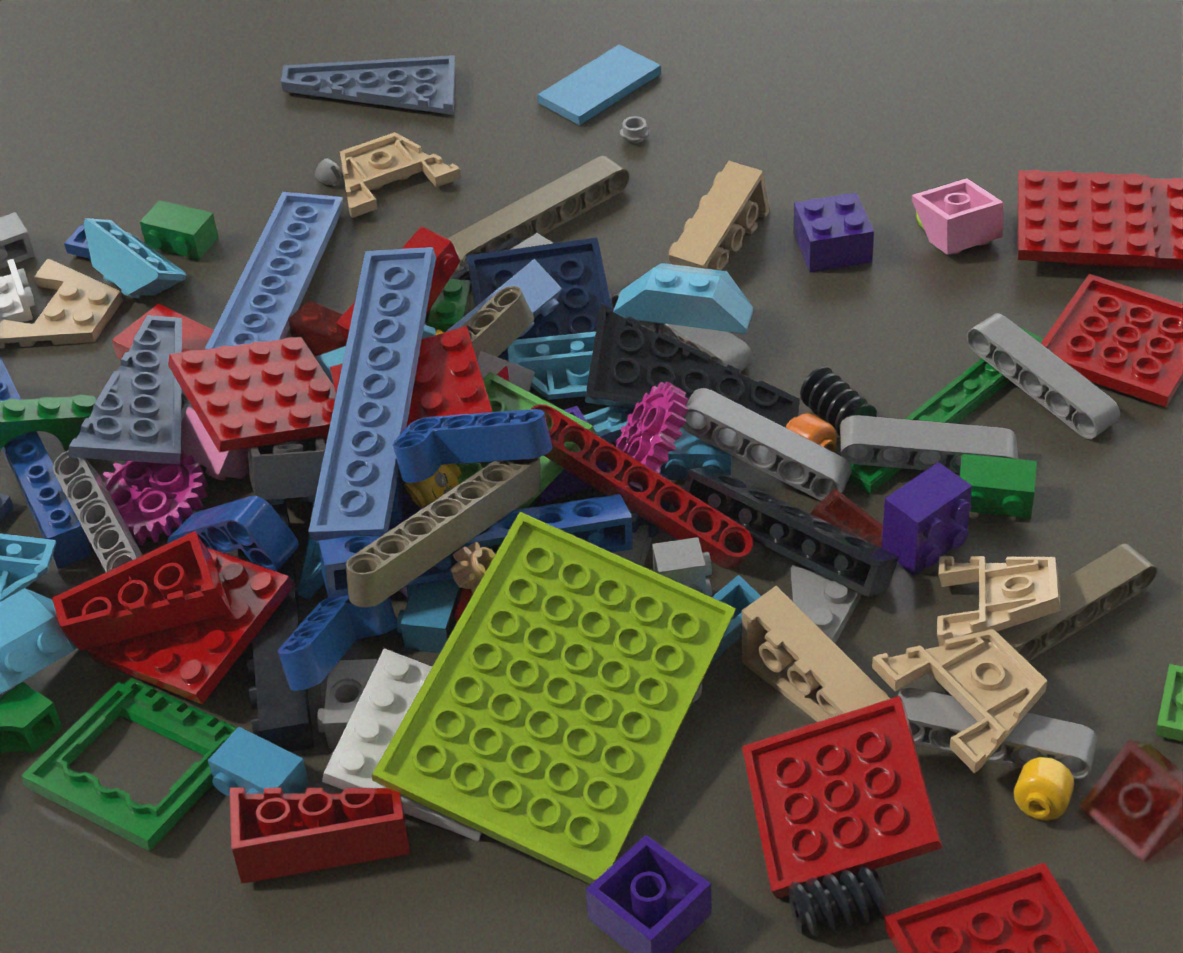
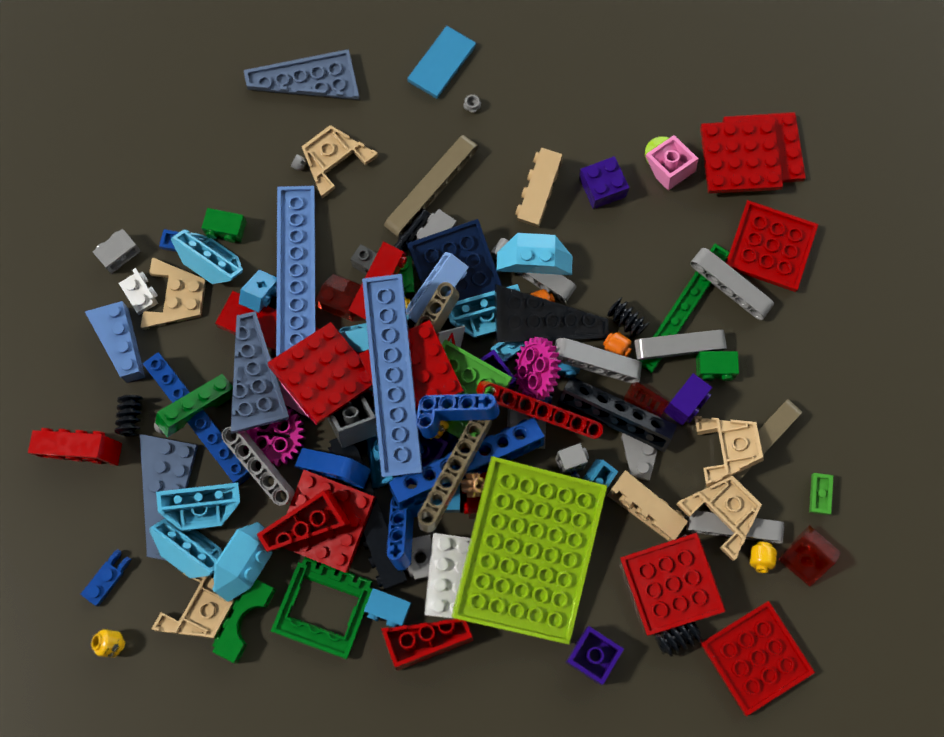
camera: 15 degrees left, 30 degrees up
(195, 301) = (258, 291): none -> dark azure brick

